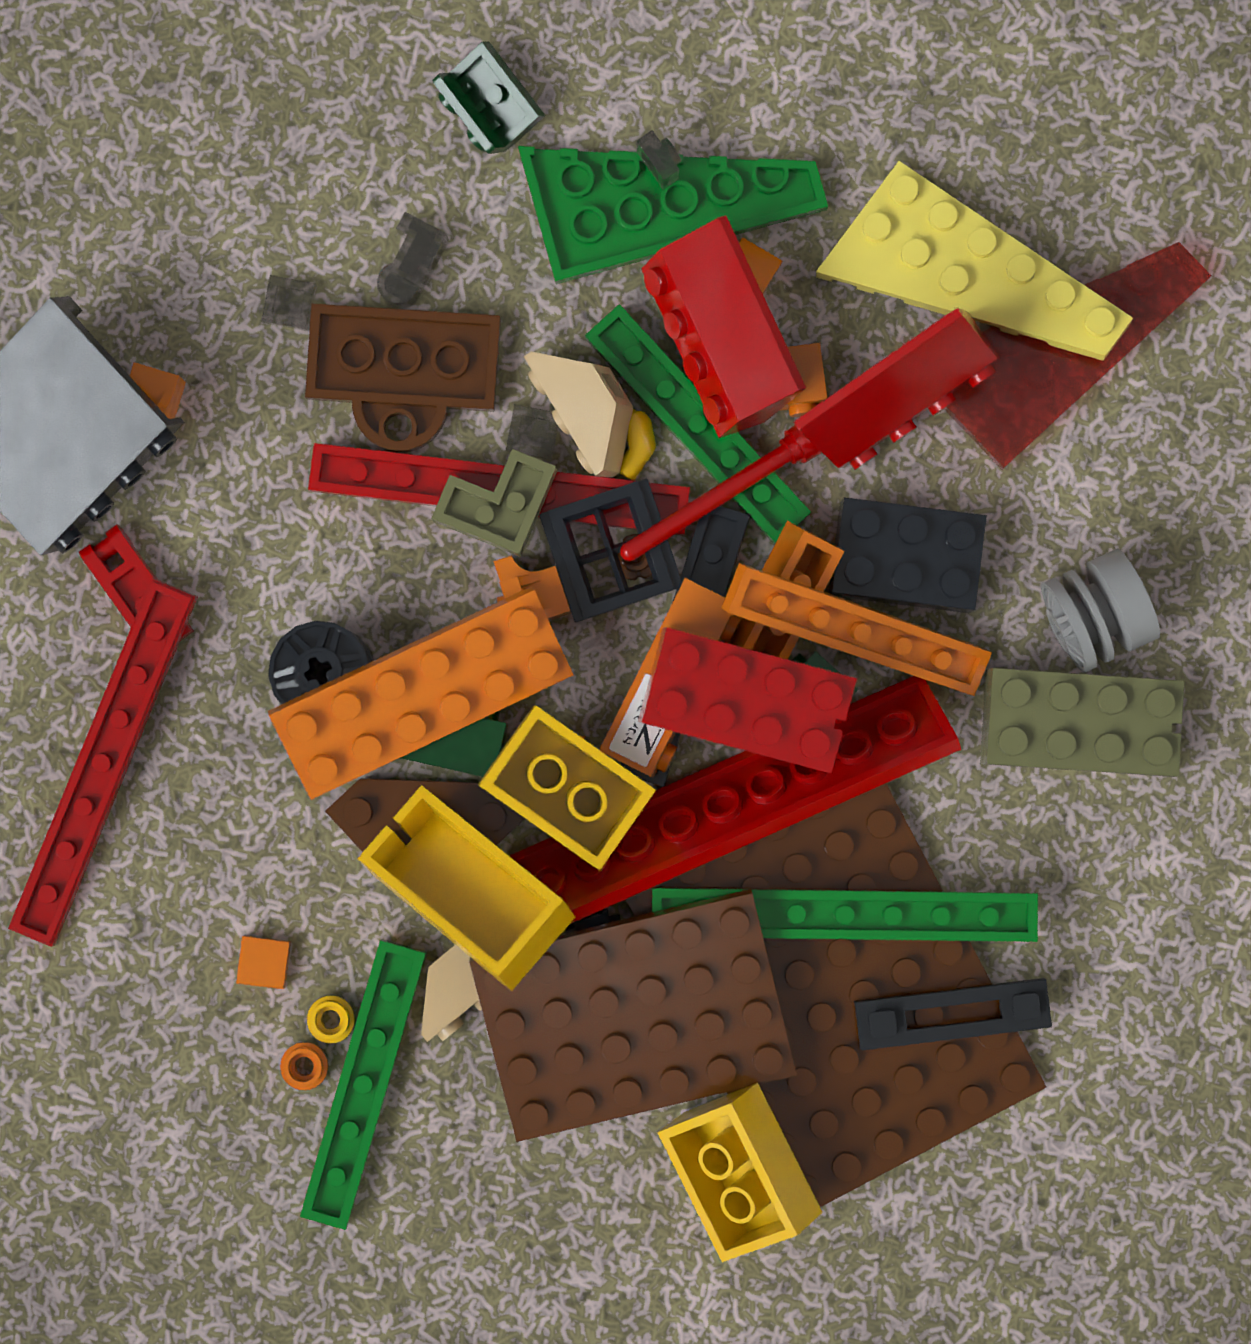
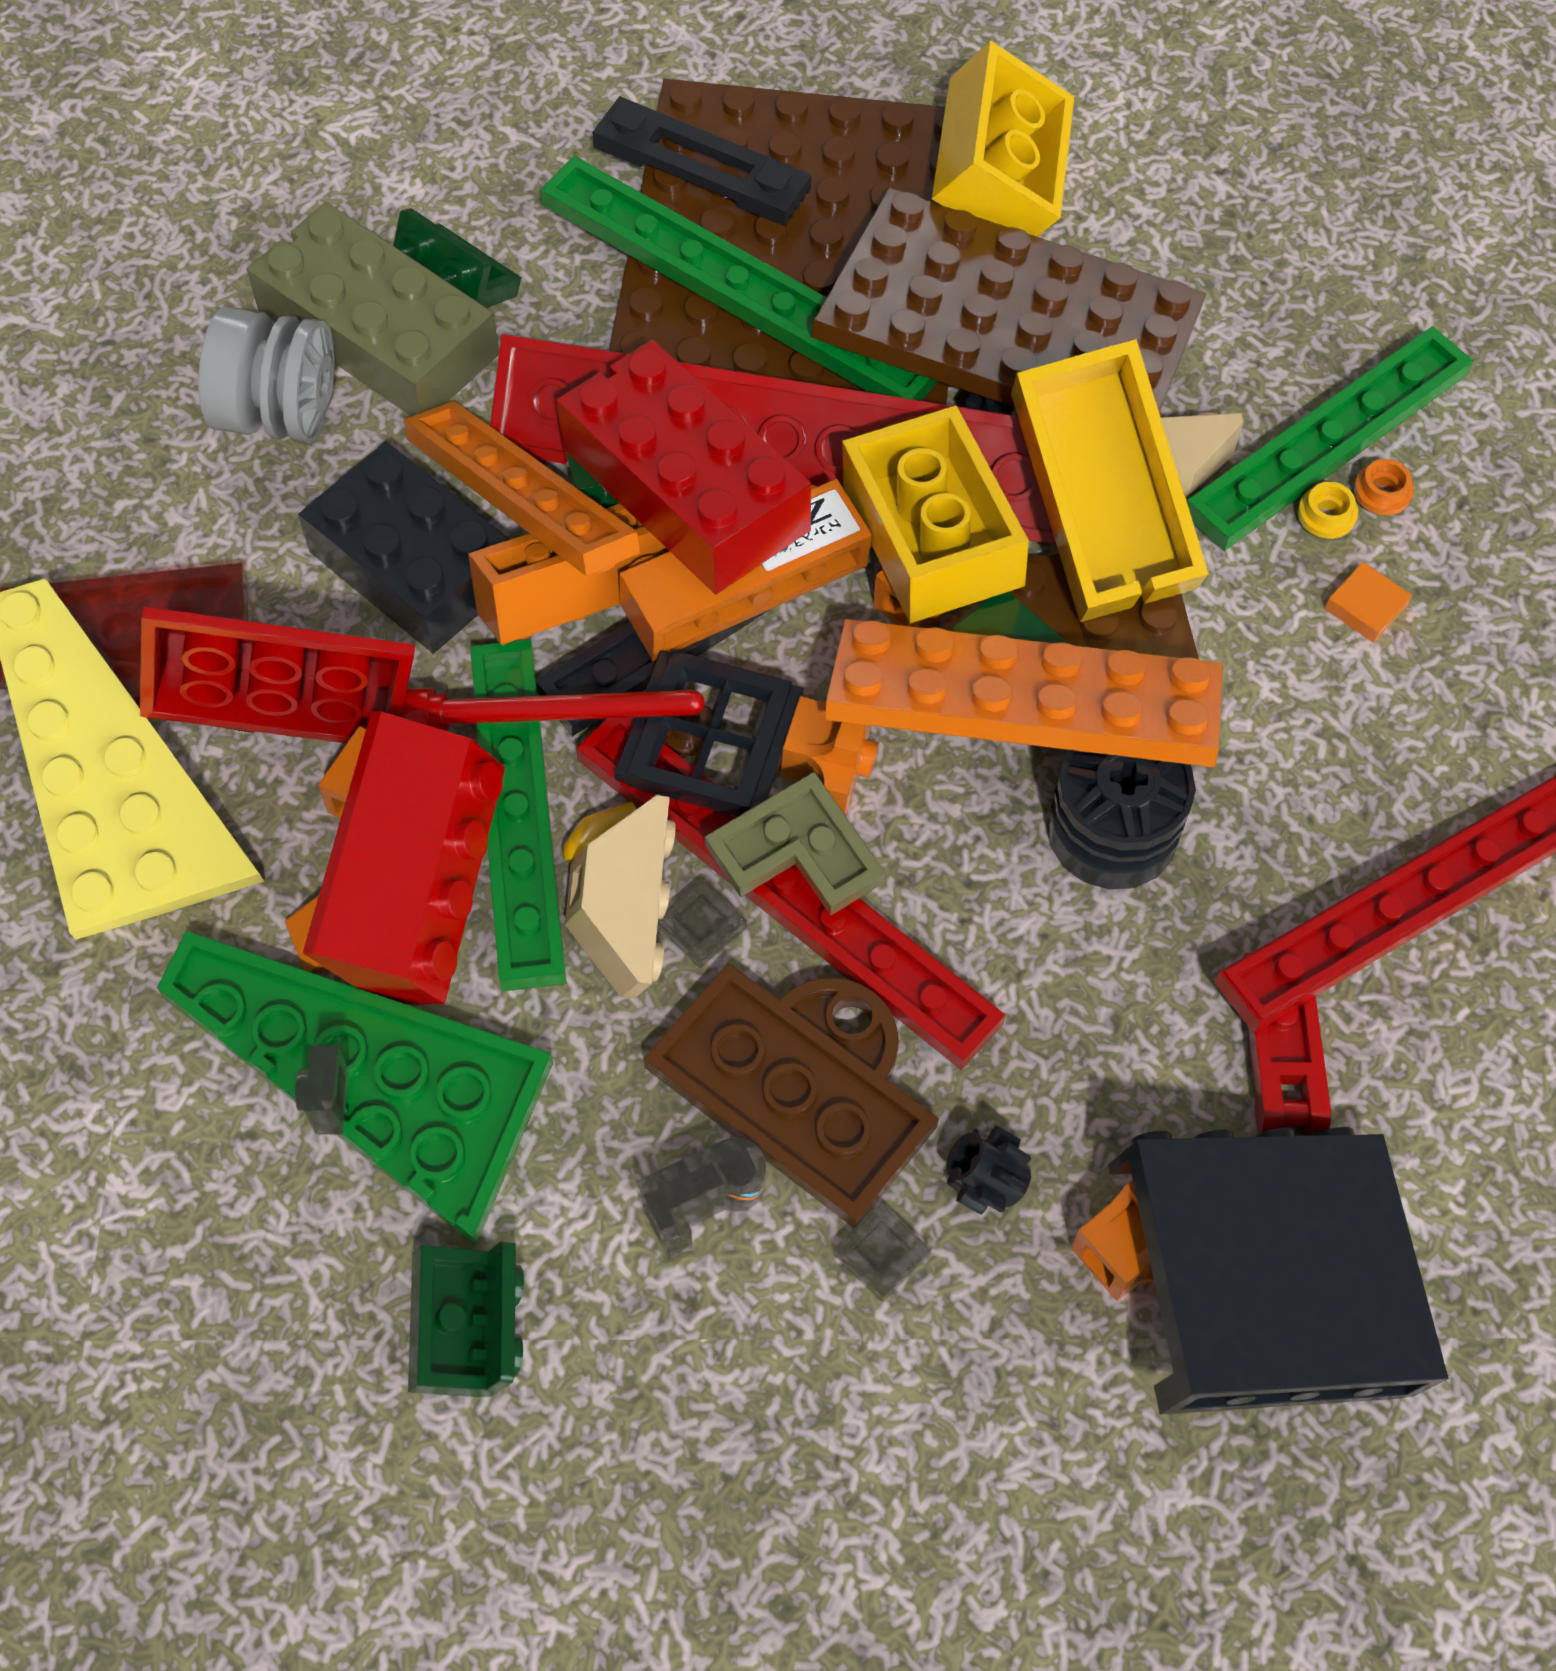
camera: 150 degrees left, 25 degrees down
(256, 385) = (988, 1170): none -> black gear
(1058, 802) = (455, 259): none -> dark green bracket

